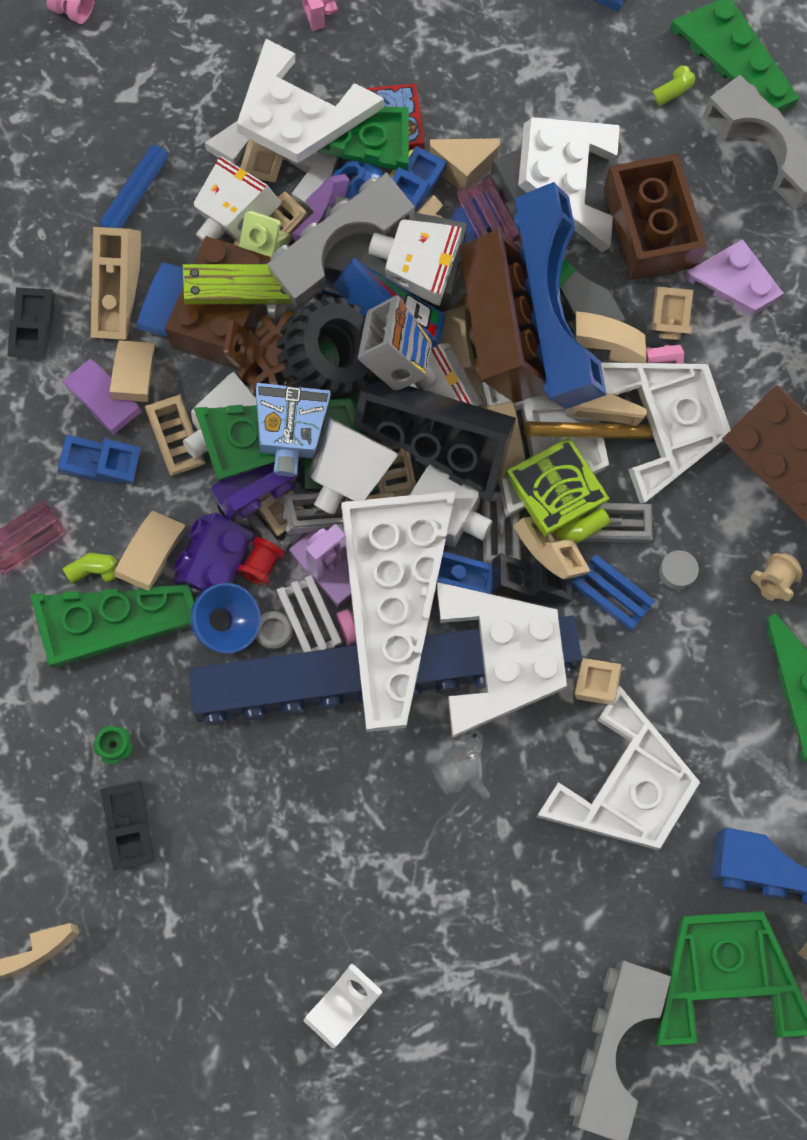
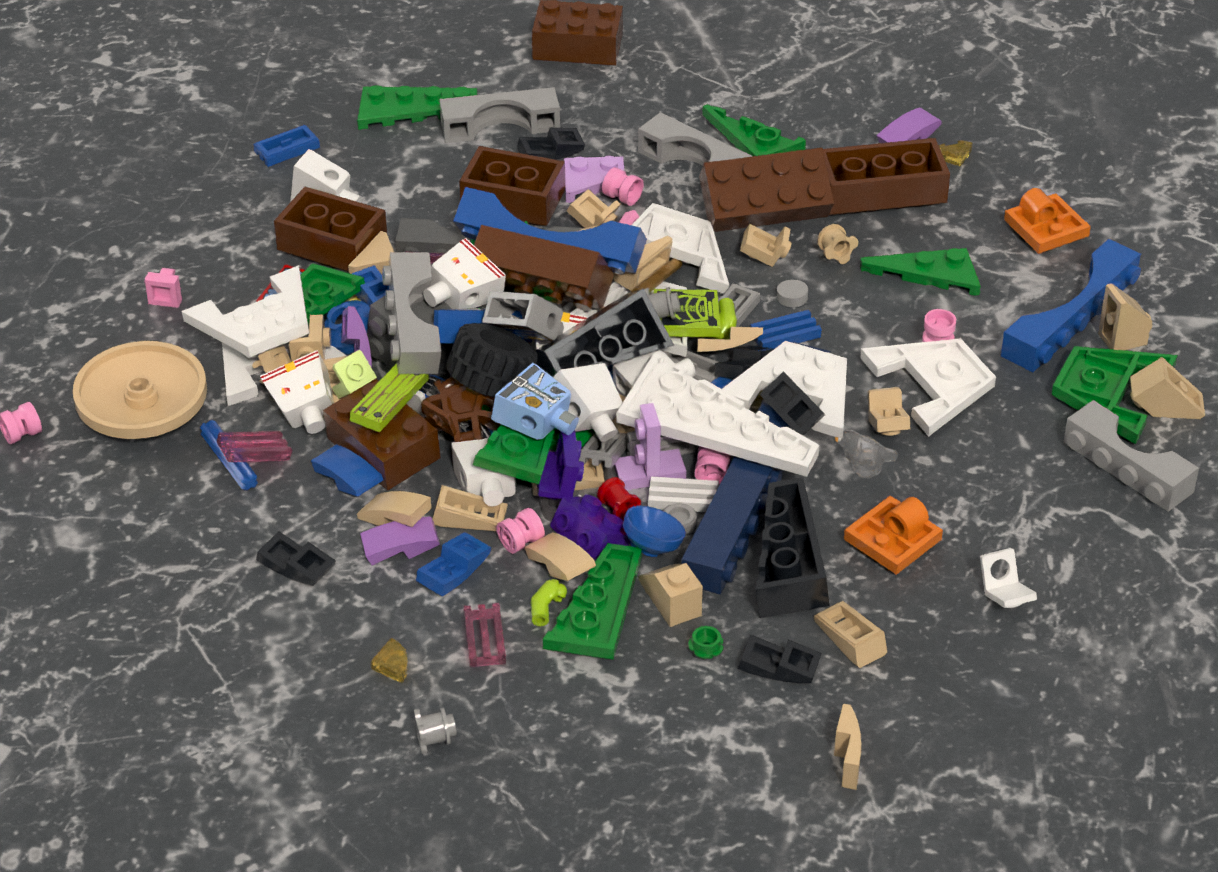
camera: 55 degrees left, 30 degrees down
(114, 281) = (304, 489): tan slope -> none
(155, 195) = (254, 446): none -> clear pink tile
(158, 68) = (139, 389): none -> tan dish
(162, 674) = (674, 592): none -> tan slope
(166, 496) = (520, 530): none -> bright pink wheel
(185, 905) = (854, 636): none -> tan slope
(265, 766) = (790, 559): none -> black wedge
(305, 175) = (318, 339): none -> tan bracket
(359, 852) = (894, 533): none -> orange plate
(453, 677) = (792, 404): none -> black slope
(479, 89) = (327, 227): none -> reddish brown brick
(530, 459) = (664, 303): none -> light grey brick
(534, 50) = (323, 175): none -> white torso
(536, 761) = (886, 411): none -> tan bracket
(559, 154) = (422, 204): white wing -> none
(598, 681) = (857, 354): tan tile -> none
(682, 81) = (413, 138): lime arm -> none
(707, 748) = (939, 325): none -> bright pink wheel
(729, 505) = (765, 246): none -> tan bracket
(731, 318) = (624, 187): none -> bright pink wheel
(748, 1049) = (1166, 392): none -> tan slope
(757, 217) = (557, 144): none -> black slope

